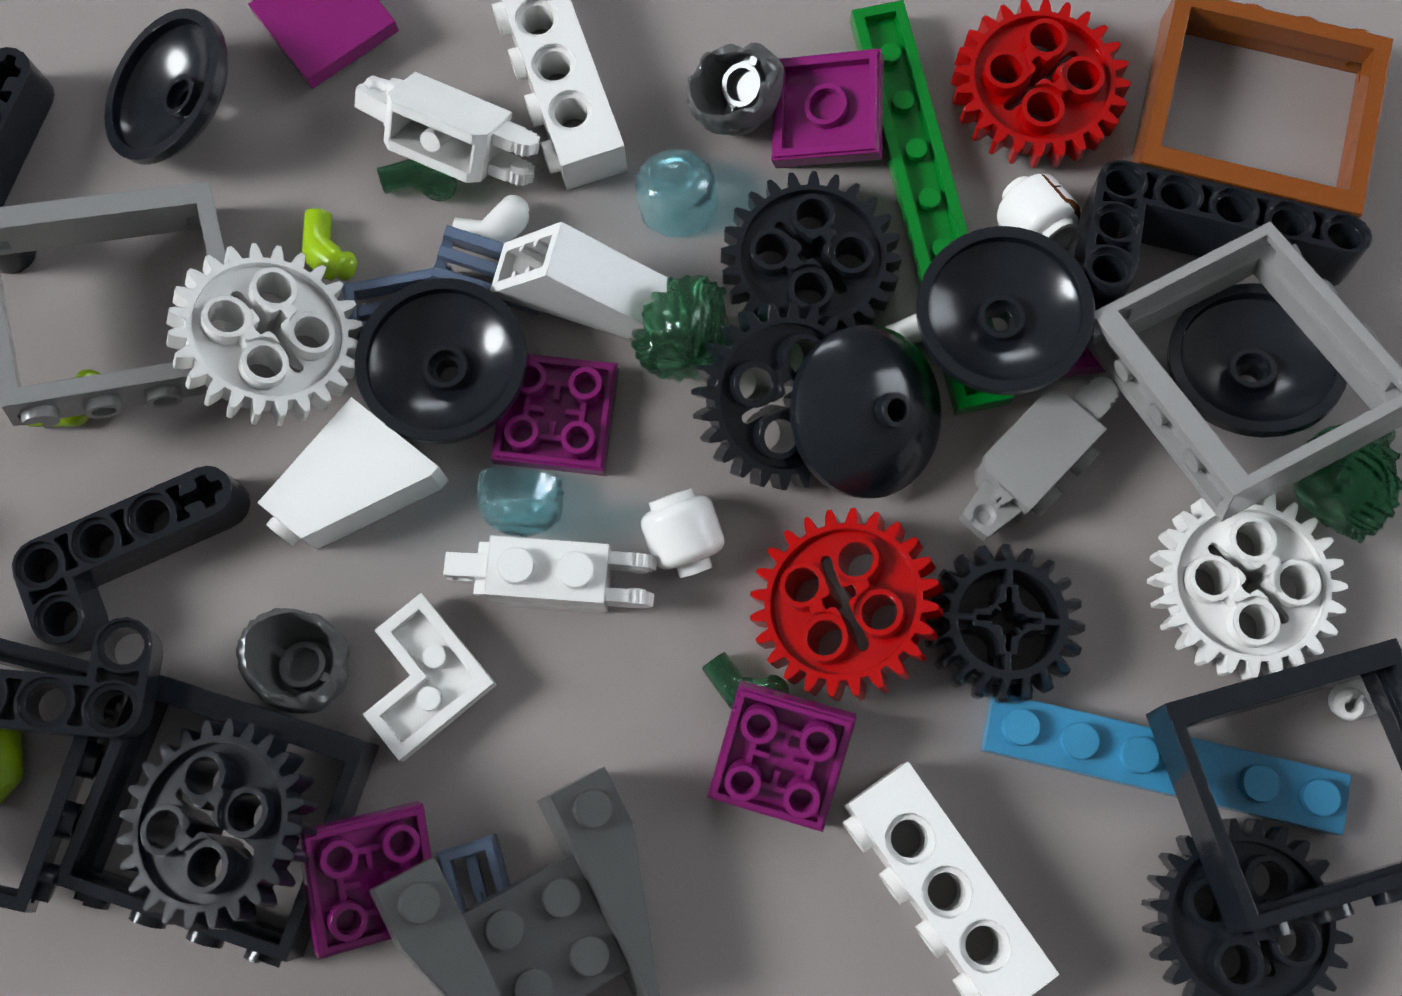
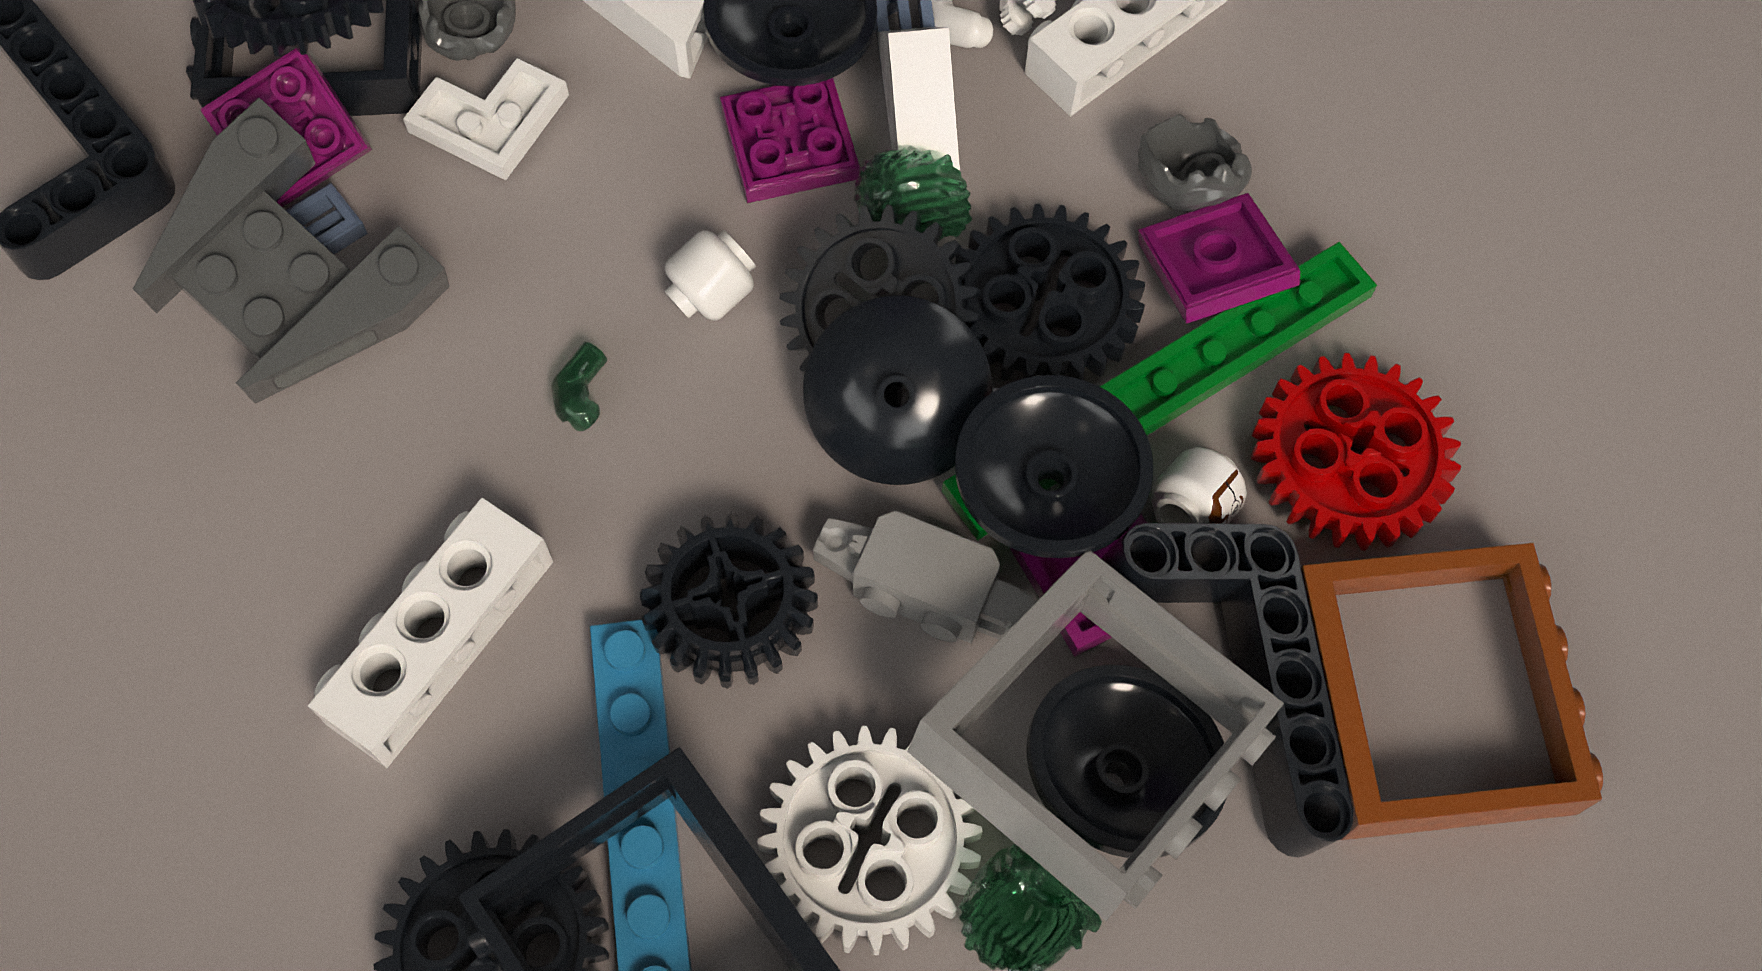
camera: 65 degrees right, 10 degrees down
(519, 500) = (685, 126): clear light blue hair -> none
(550, 574) = (622, 175): white hinge -> none
(676, 192) = (1063, 159): clear light blue hair -> none
(782, 755) = (517, 435): magenta tile -> none
(891, 580) = (689, 439): red gear -> none

